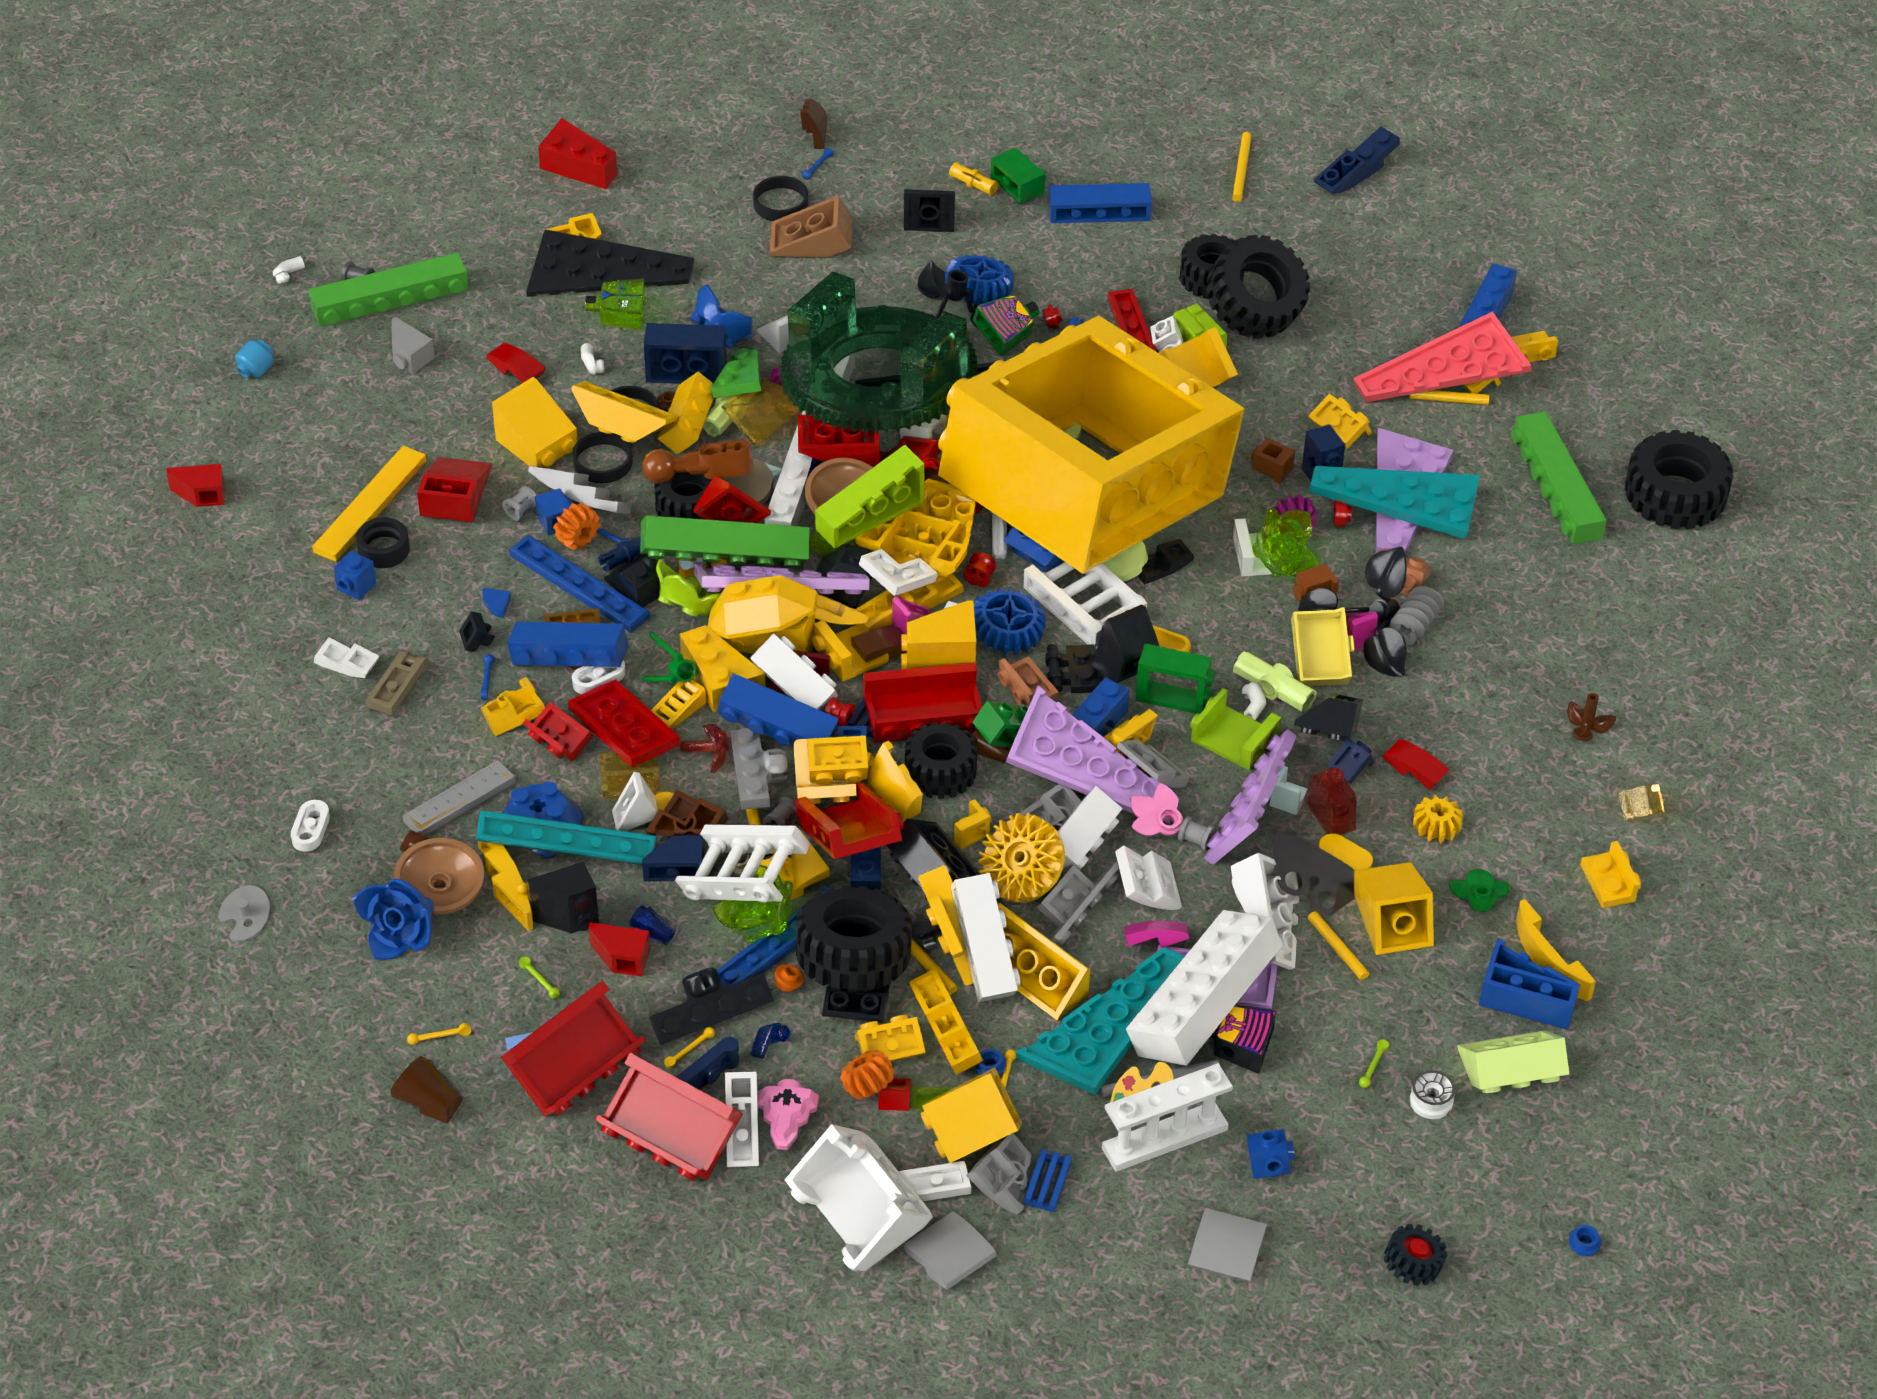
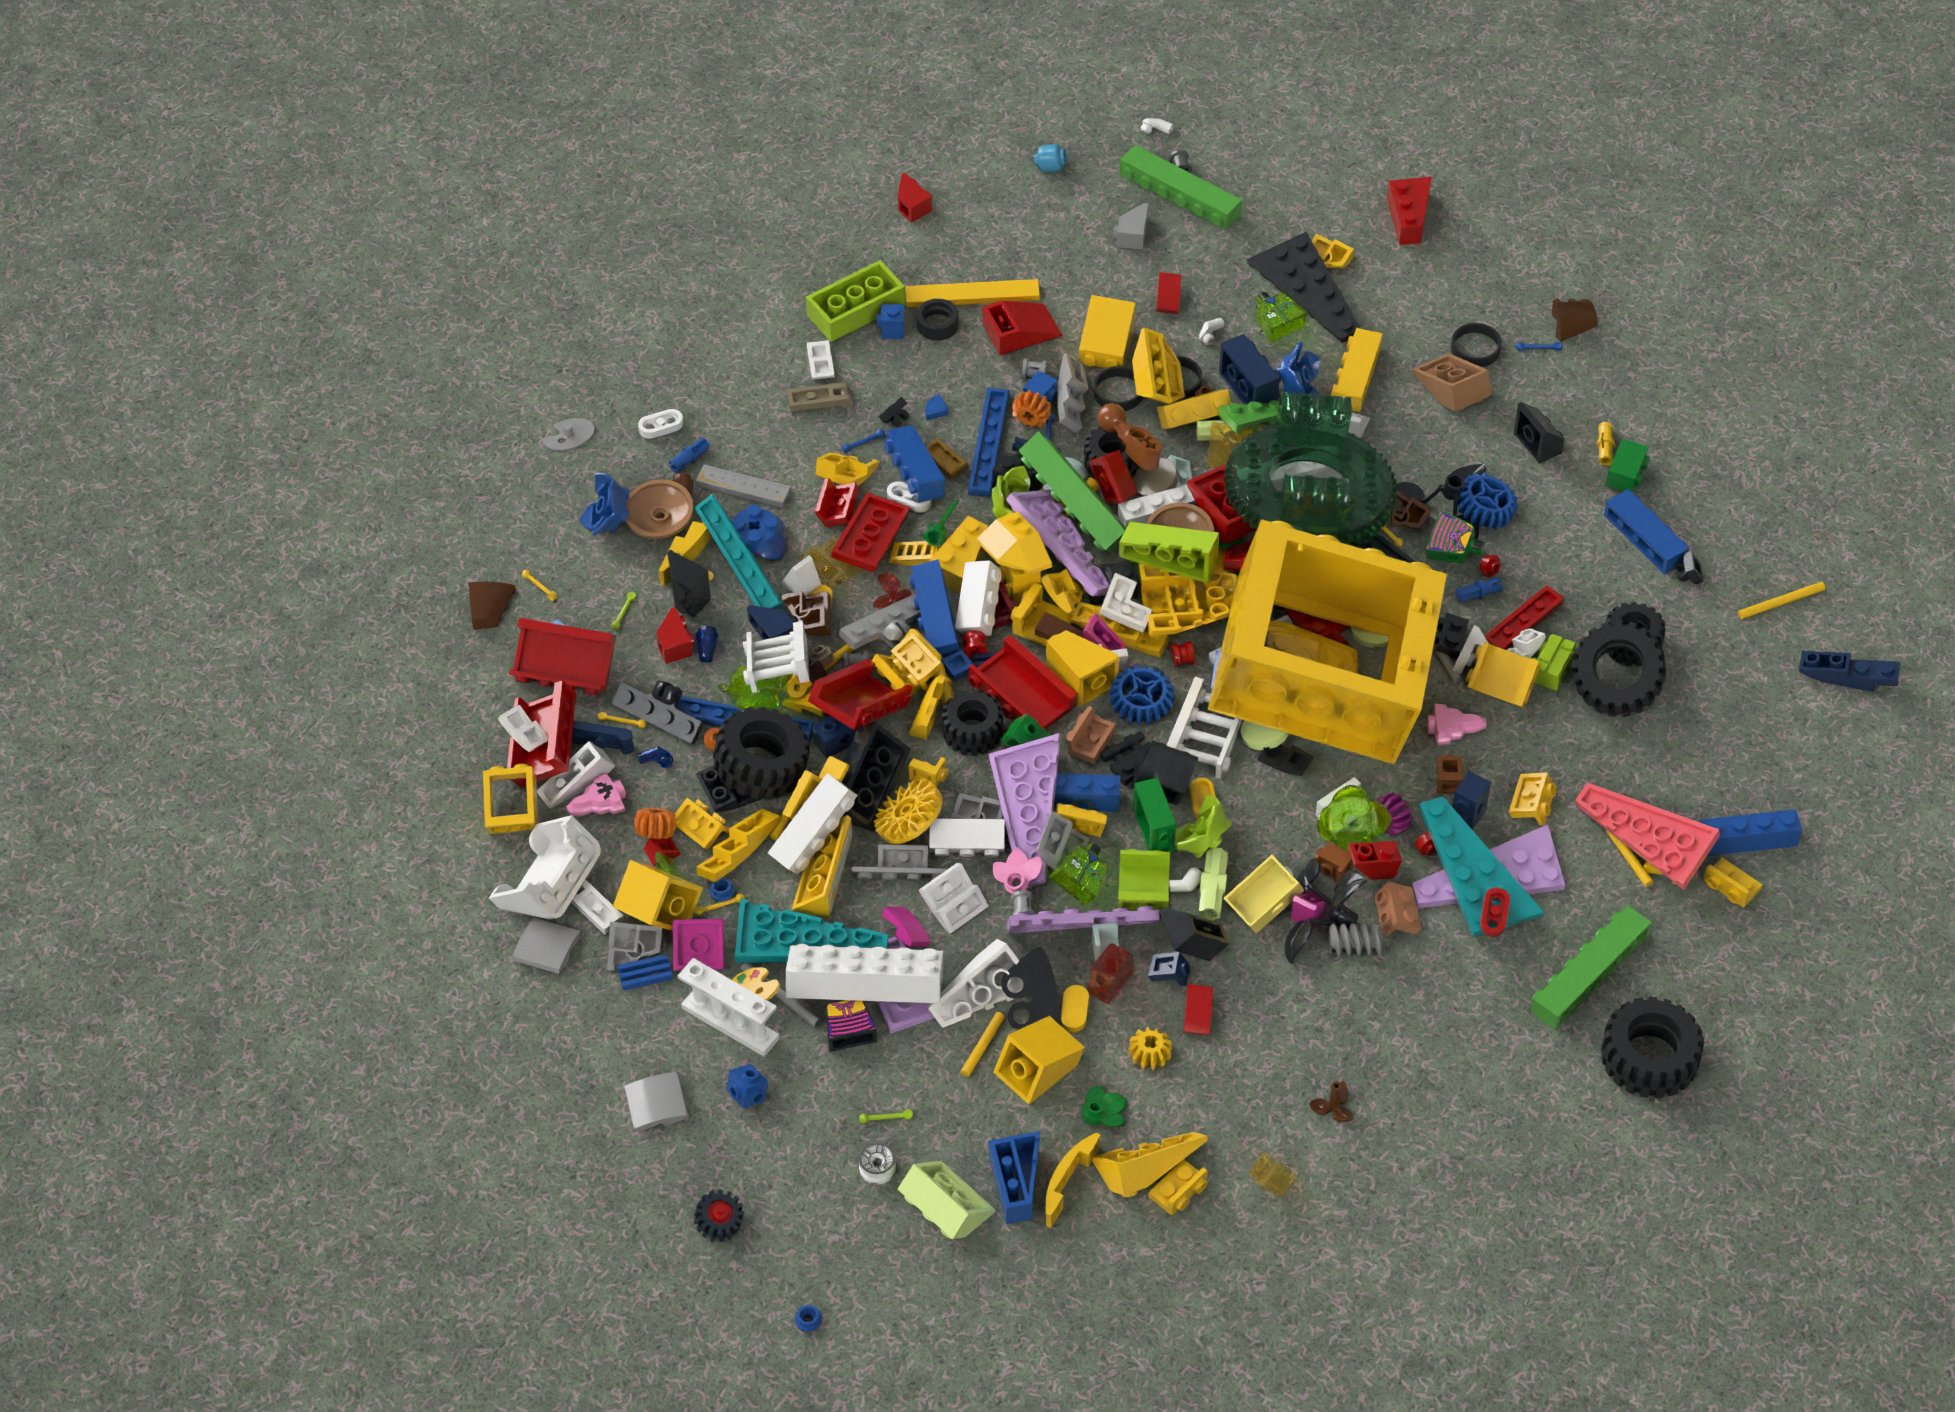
camera: 60 degrees right, 5 degrees up
(301, 588) = (854, 300): none -> lime brick
(376, 823) = (688, 455): none -> blue axle
(657, 1129) = (522, 730): none -> white slope
(721, 1206) = (510, 823): none -> yellow window
(740, 285) = (1358, 366): none -> yellow brick
(1055, 1111) = (698, 940): none -> dark pink tile
(1164, 196) = (1691, 569): none -> black tile
(1197, 766) = (1081, 873): none -> clear neon green torso
(1217, 640) = (1205, 831): none -> lime brick
(1340, 549) = (1376, 859): none -> red slope
(1467, 500) = (1493, 913): none -> red plate
(1569, 889) = (1137, 1169): none -> yellow wedge

